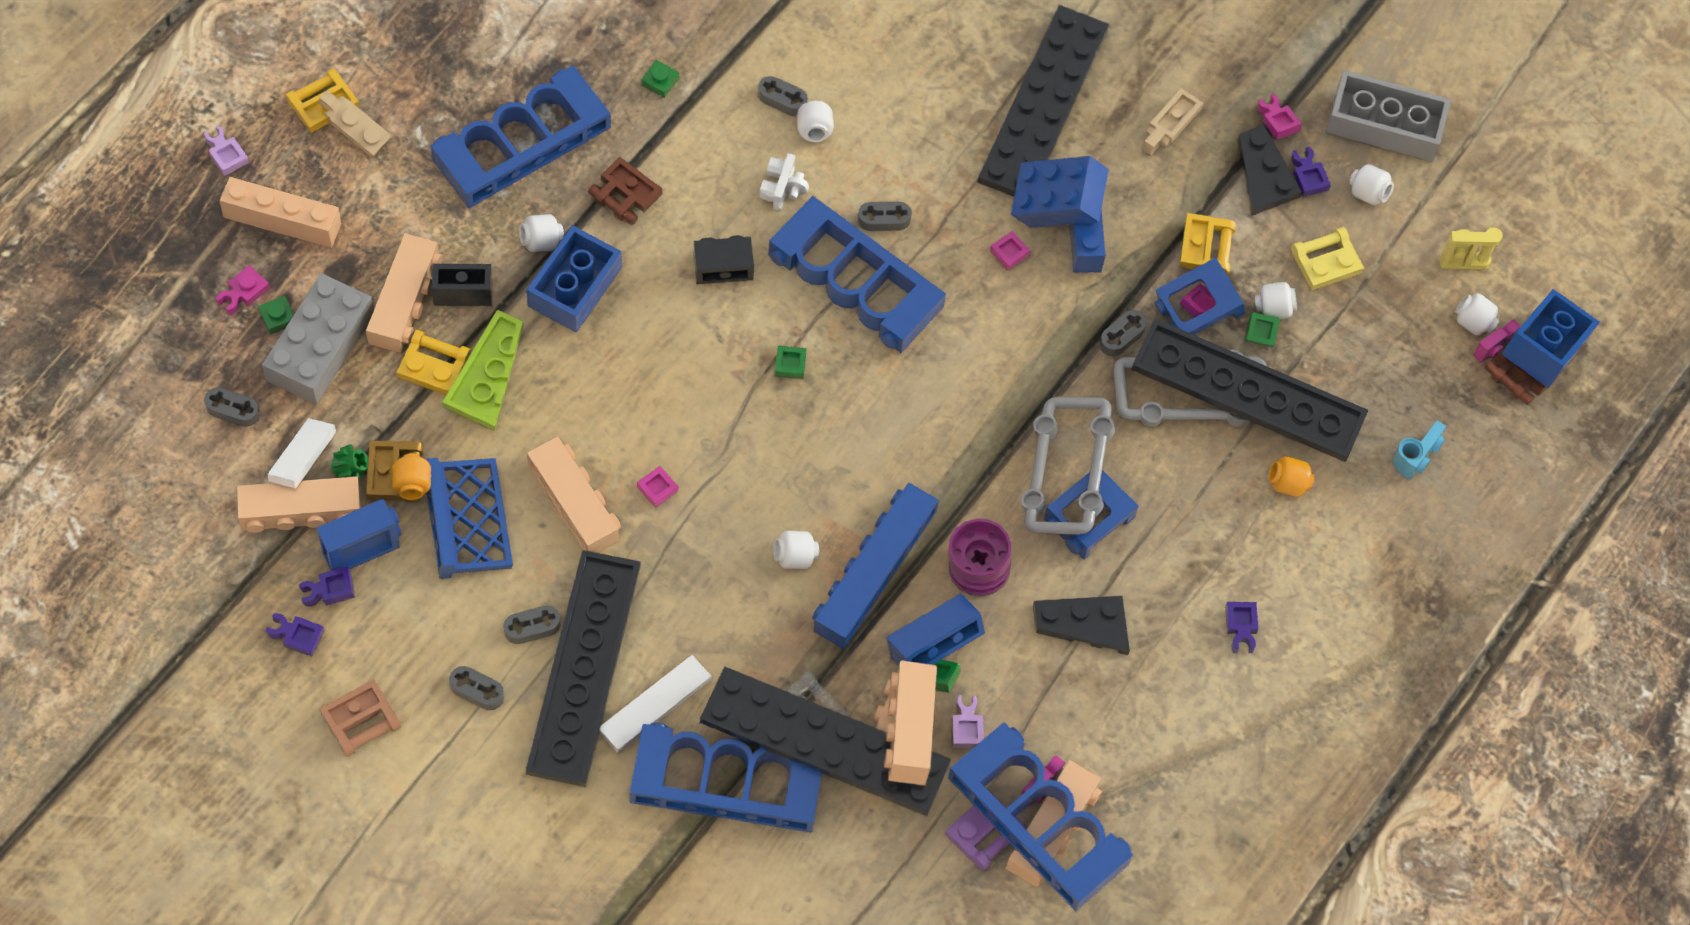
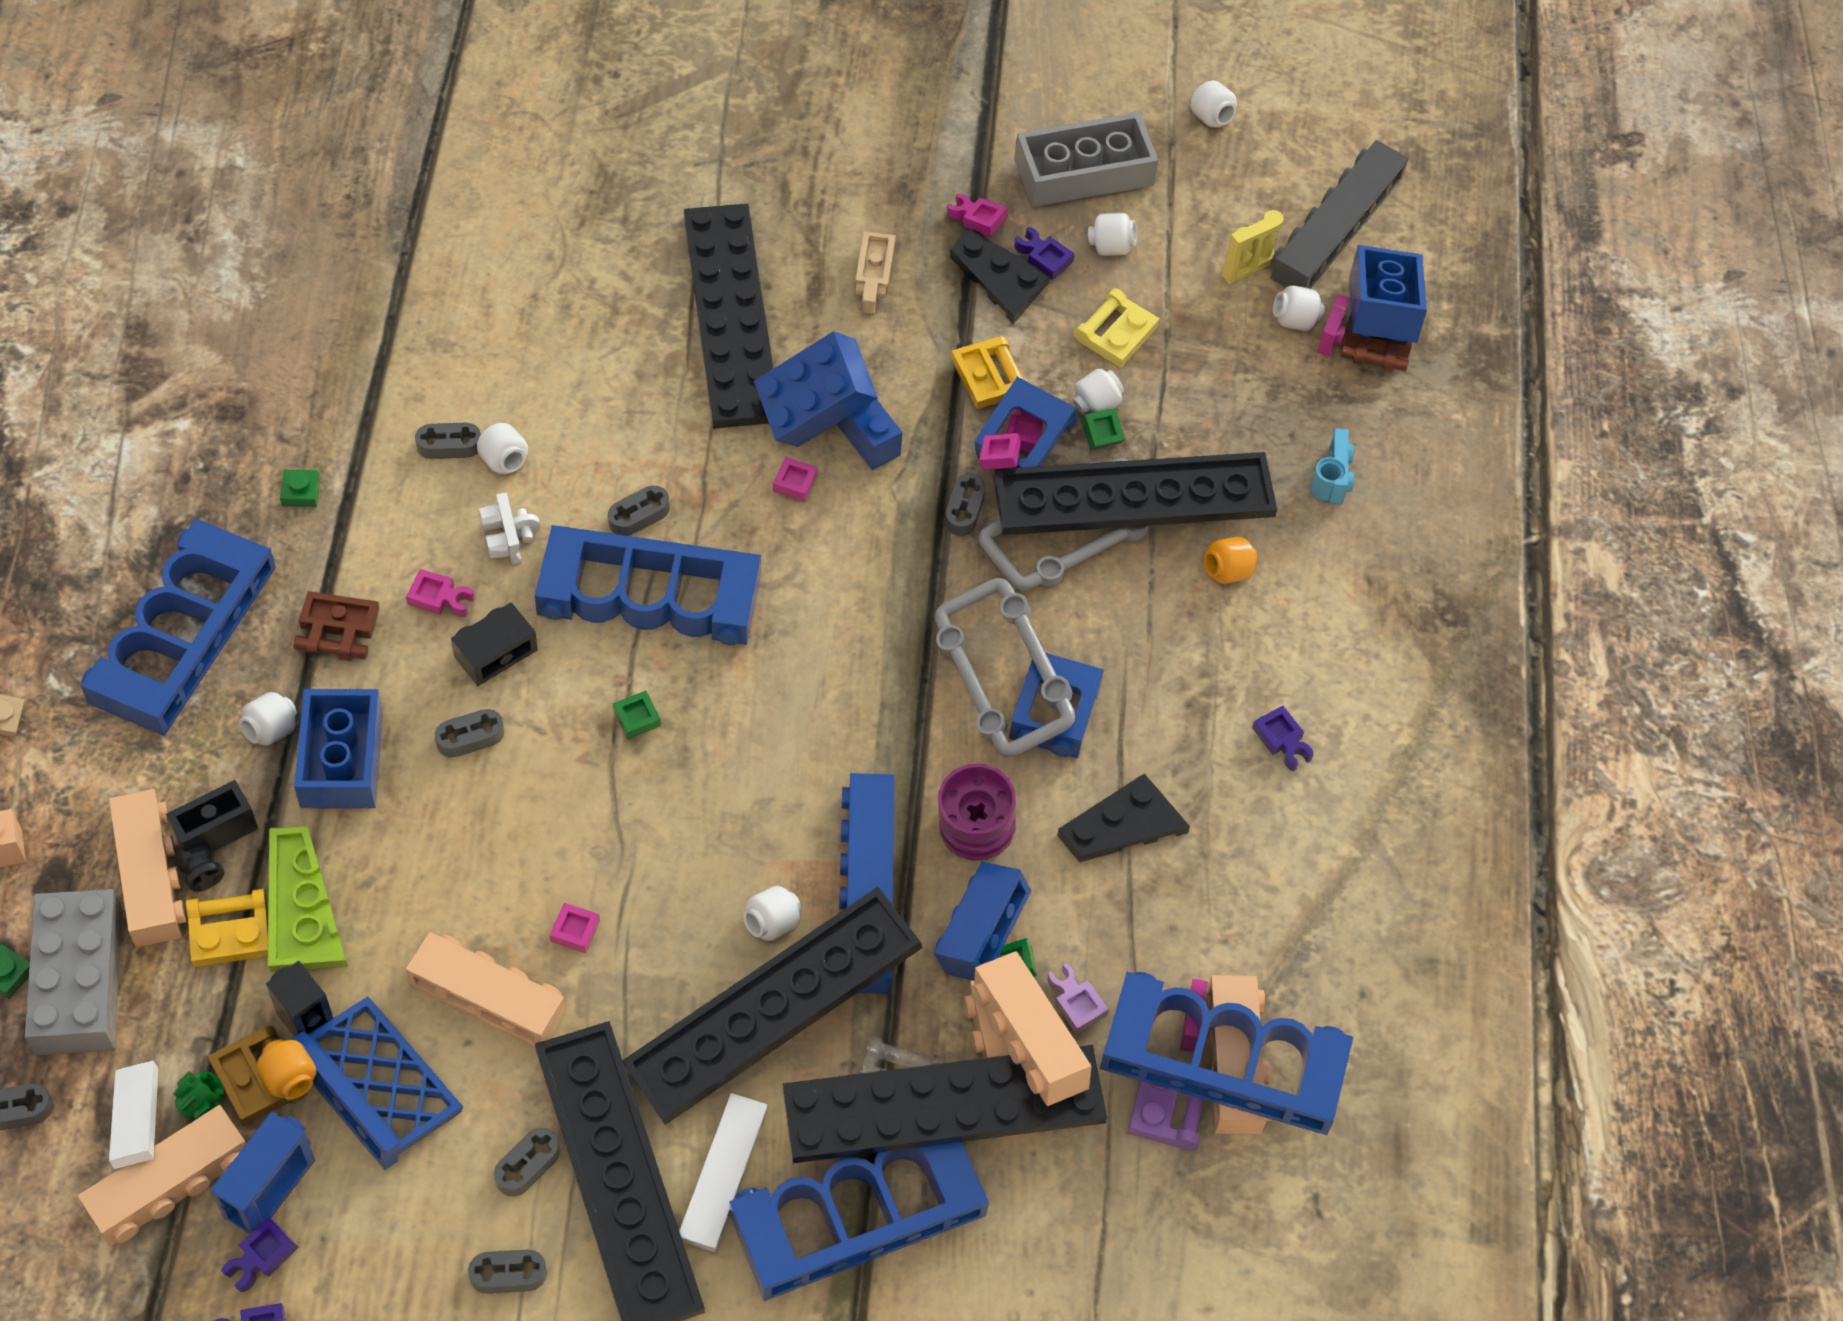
camera: 30 degrees left, 5 degrees down
(438, 312) = (200, 868): none -> black wheel
(446, 435) = (298, 999): none -> black brick
(670, 314) = (469, 733): none -> dark grey beam
(706, 202) = (435, 592): none -> dark pink plate
(753, 610) = (771, 1005): none -> black plate
(1166, 307) = (1000, 451): none -> dark pink plate
(1522, 120) = (1214, 104): none -> white head
(1560, 259) = (1339, 216): none -> dark grey brick

